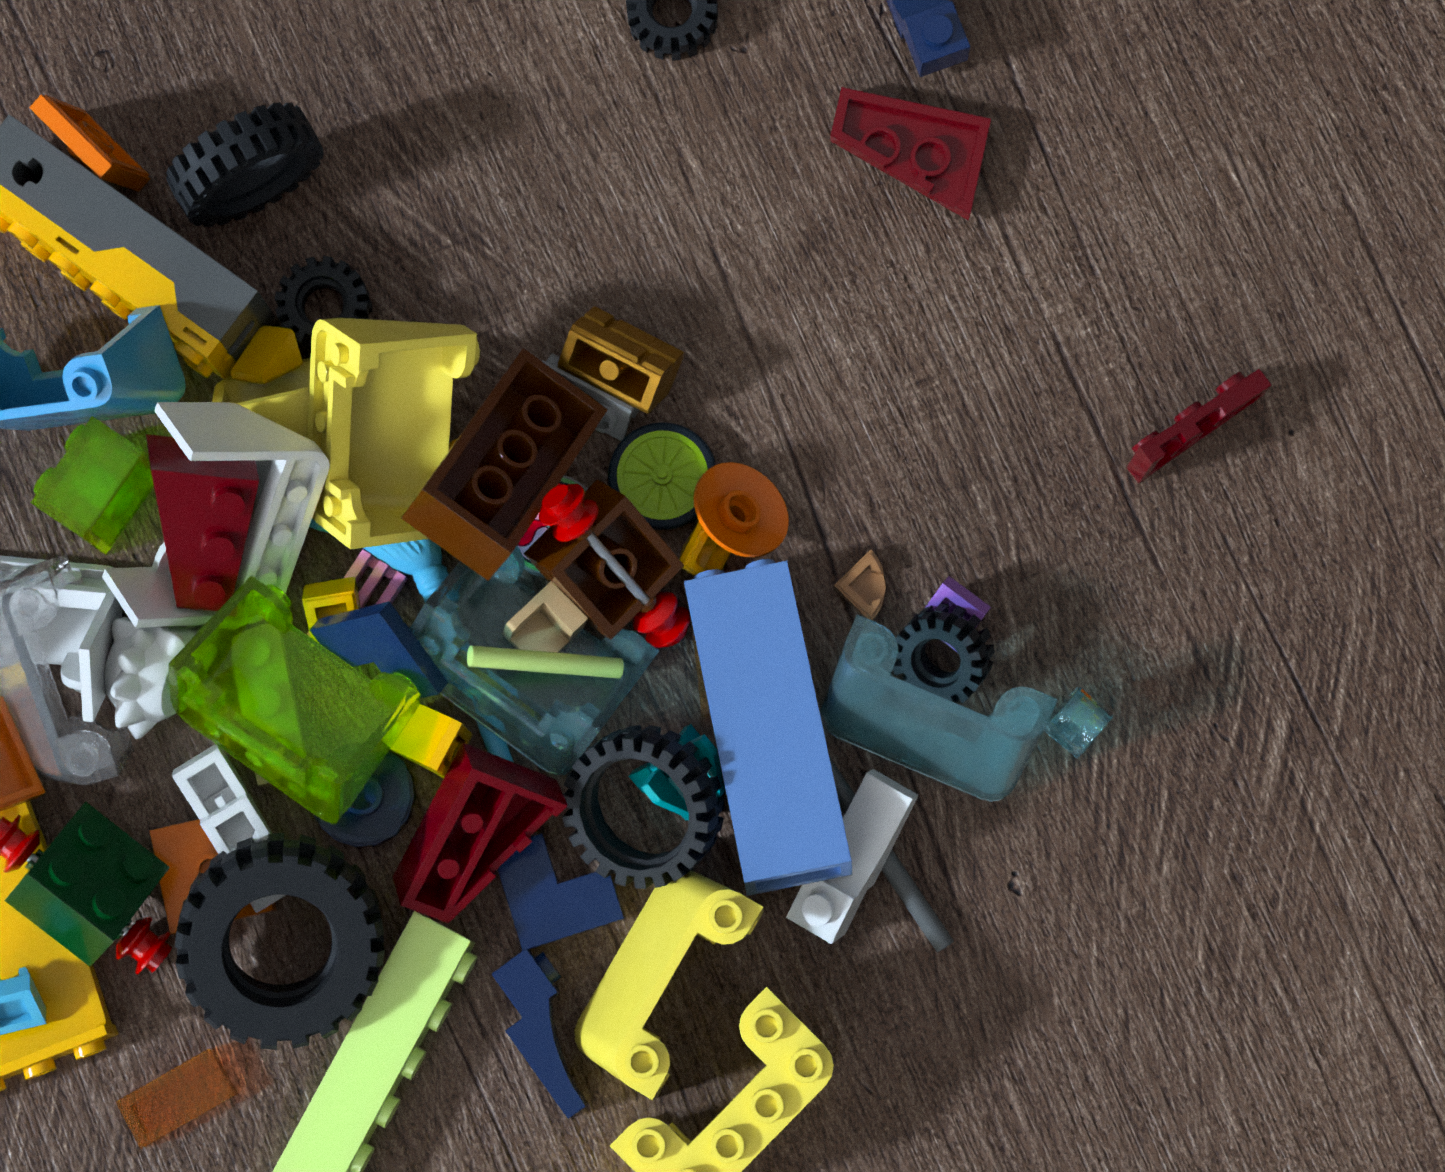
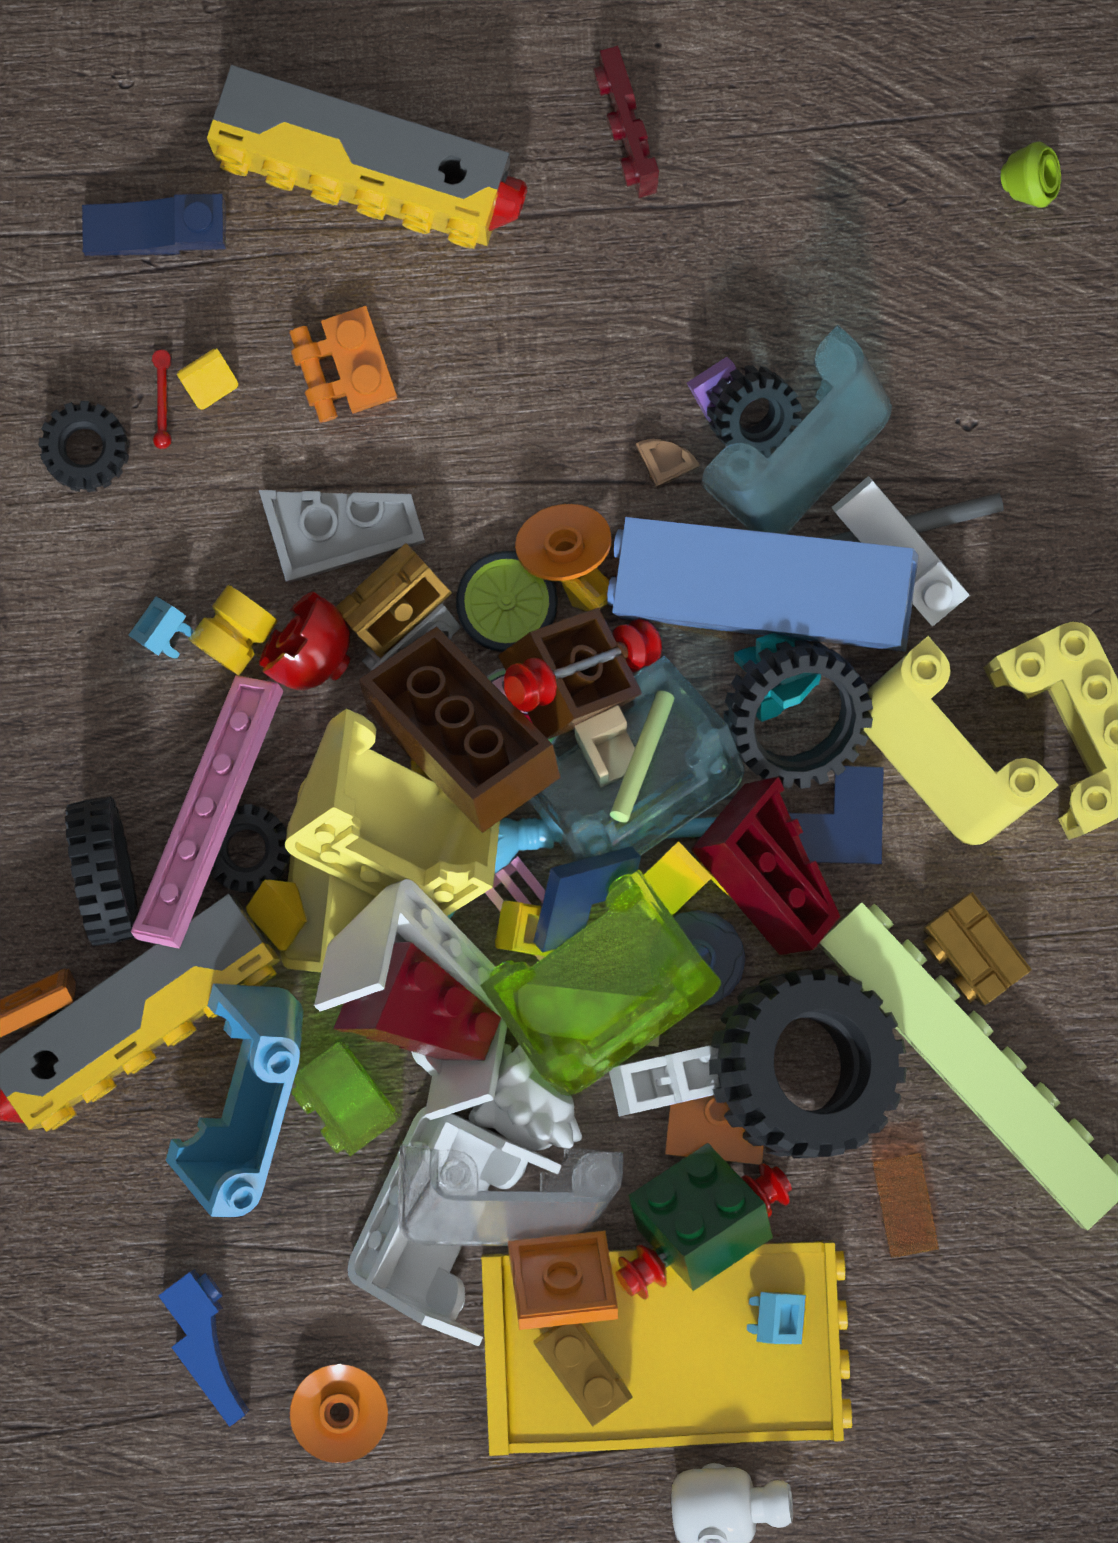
camera: 75 degrees left, 5 degrees up
(339, 247) = (207, 812): none -> bright pink tile
(463, 1080) = (975, 949): none -> pearl gold brick
(515, 142) = (158, 626): none -> medium azure tile
(531, 989) = (918, 866): dark blue slope -> none
(536, 214) = (233, 630): none -> yellow wheel
(544, 293) = (309, 646): none -> red cylinder
(675, 282) = (335, 530): none -> light grey wing
(783, 104) = (208, 379): none -> yellow slope
(786, 57) = (161, 360): none -> red hinge
(855, 245) = (357, 359): none -> orange plate
(915, 143) = (286, 274): dark red wing -> none
(1058, 172) = (363, 158): none -> piece
(1078, 722) = (853, 313): clear light blue leg -> none
(1300, 861) = (1032, 175): none -> lime cone

